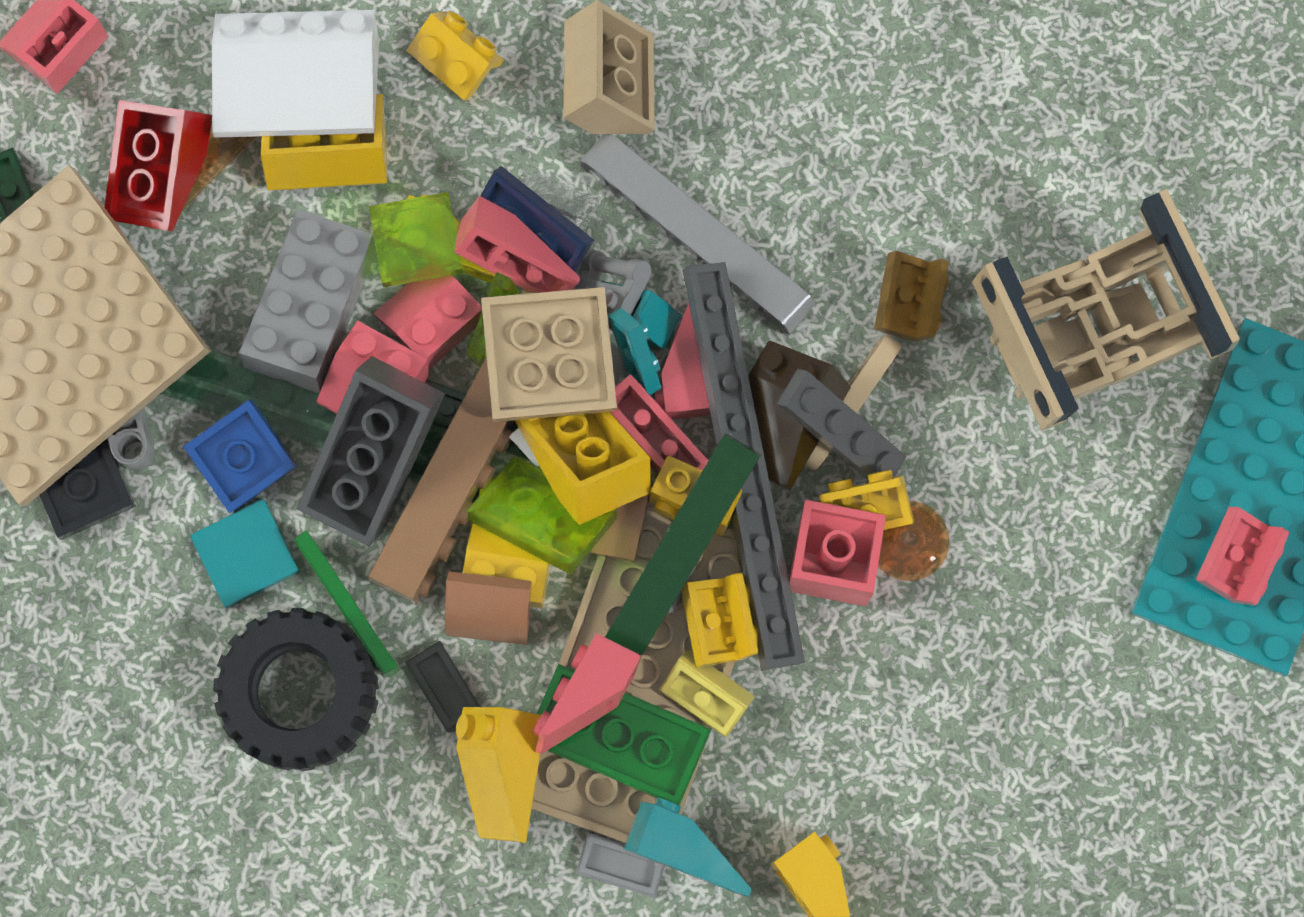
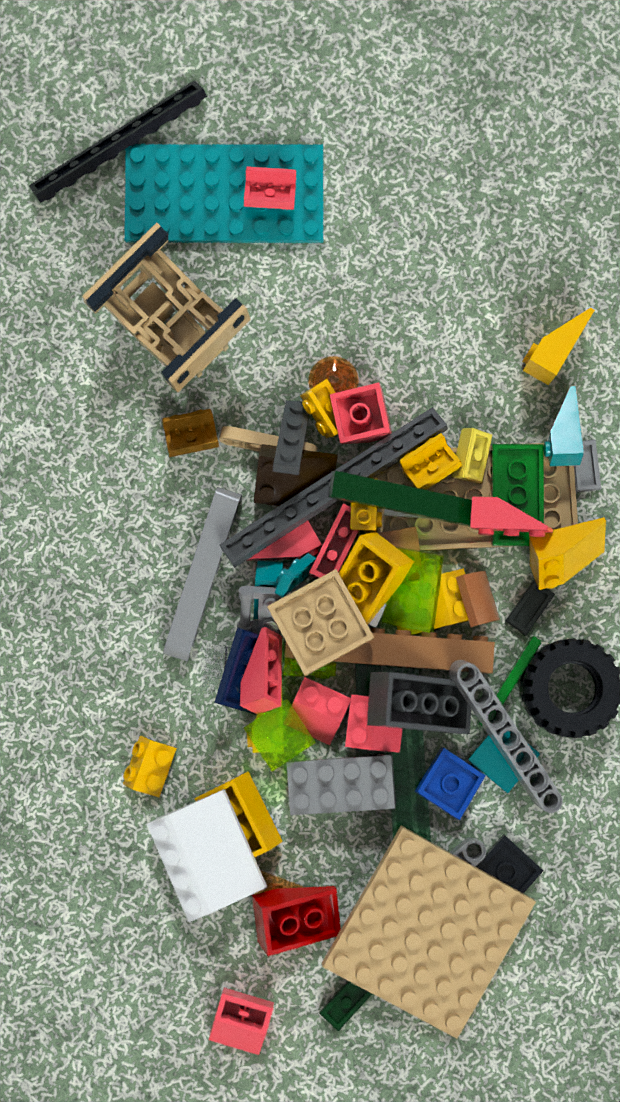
camera: 115 degrees left, 5 degrees up
(250, 557) = (514, 745): none -> light grey beam
(608, 72) = (126, 665): tan slope -> none

